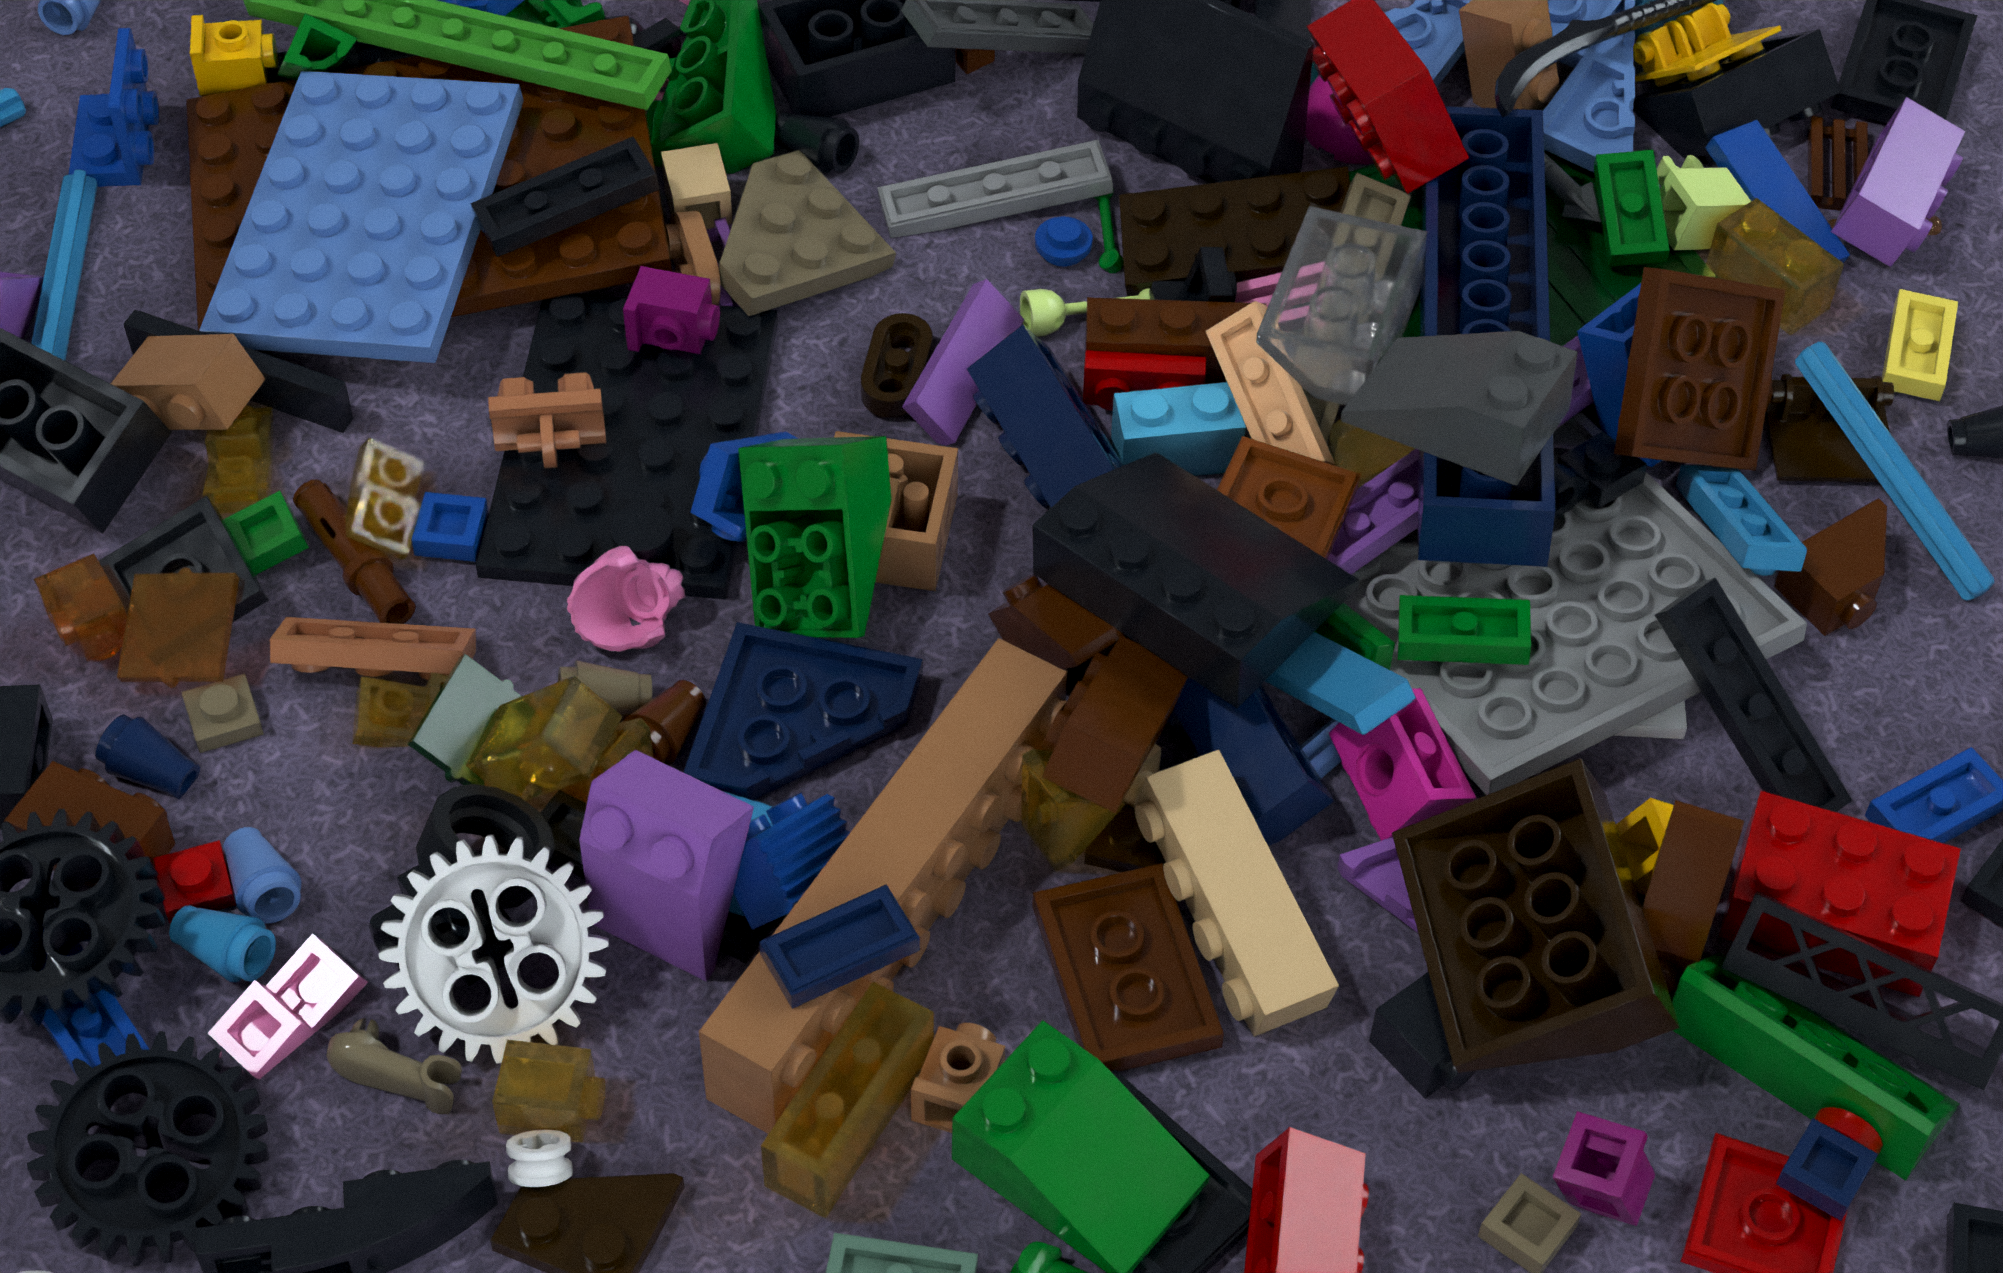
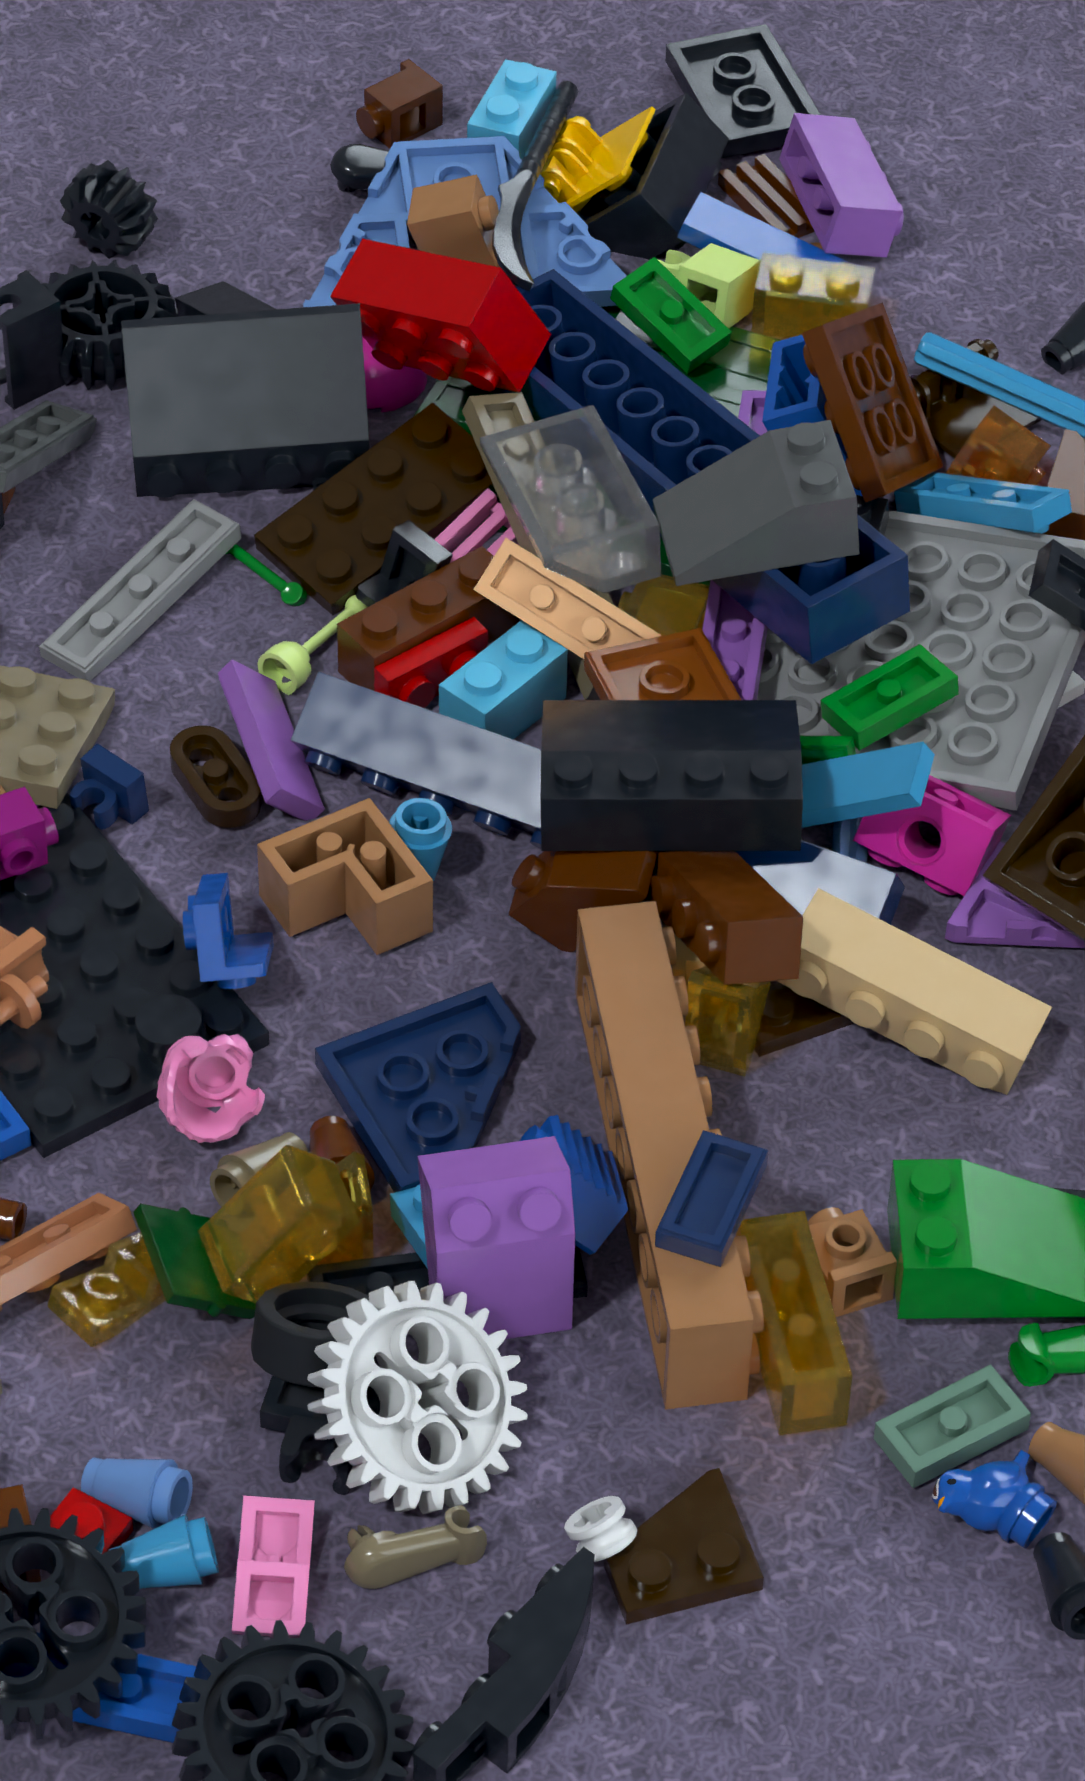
camera: 40 degrees left, 5 degrees down
(547, 1089) = (553, 1477): clear yellow brick -> none
(804, 326) = (113, 785): none -> dark blue tile
(815, 531) = (328, 931): green slope -> none
(978, 508) = (424, 830): none -> dark azure cone
(1063, 240) = (240, 600): blue plate -> none
(1127, 969) = (874, 1100): reddish brown plate -> none
(1803, 487) = (1001, 451): none -> clear orange brick
(1920, 344) = (966, 301): light yellow plate -> none

